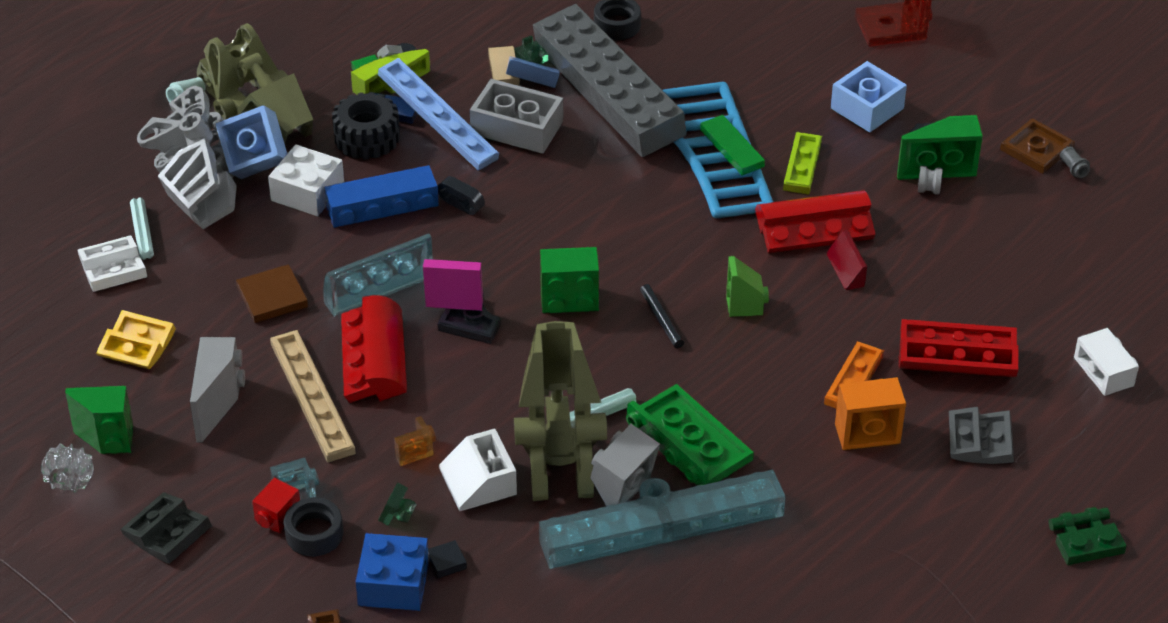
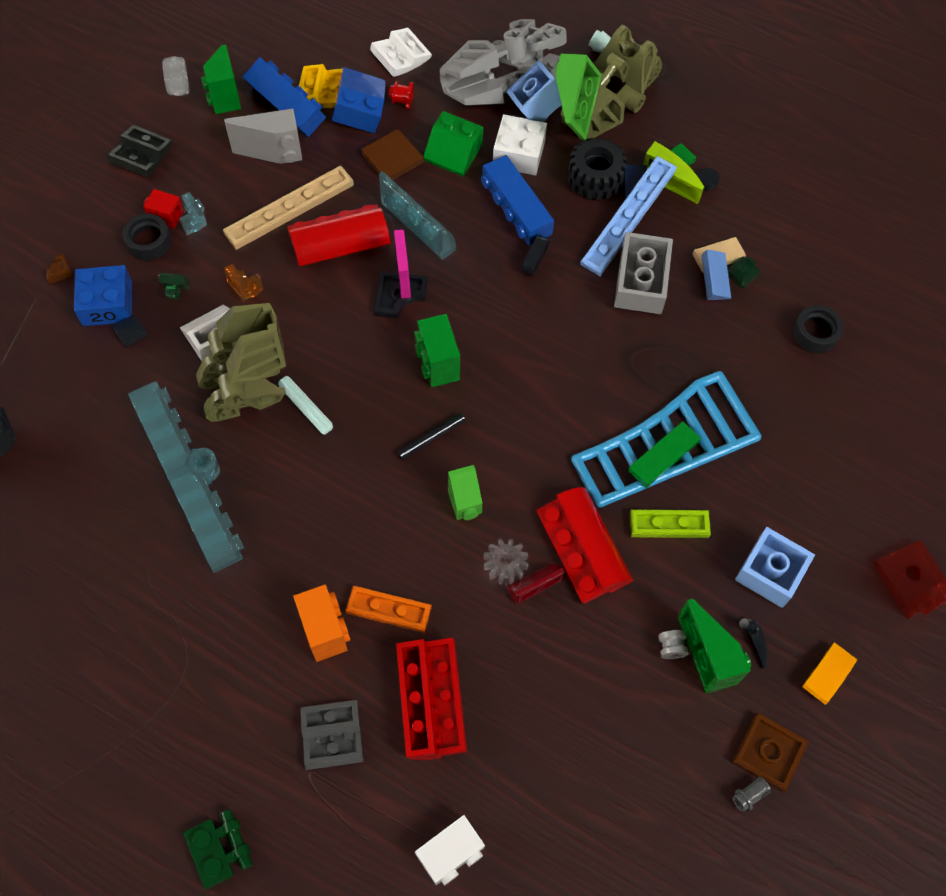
camera: 75 degrees right, 20 degrees up
(141, 228) = (433, 62): light aqua axle -> none
(149, 367) = (284, 96): none -> blue brick
(183, 302) = (359, 100): none -> blue slope
(186, 266) = (402, 93): none -> red brick
(280, 233) = (453, 143): none -> green slope
(290, 92) = (578, 88): none -> bright green slope
(389, 50) = (694, 164): light grey tile -> none
(610, 80) = (716, 335): dark grey brick -> none
(624, 465) = (217, 428): light grey slope -> none
(689, 436) = (281, 478): green bracket -> none
(822, 277) = (506, 570): none -> clear gear
(974, 92) = (829, 673): none -> light orange slope

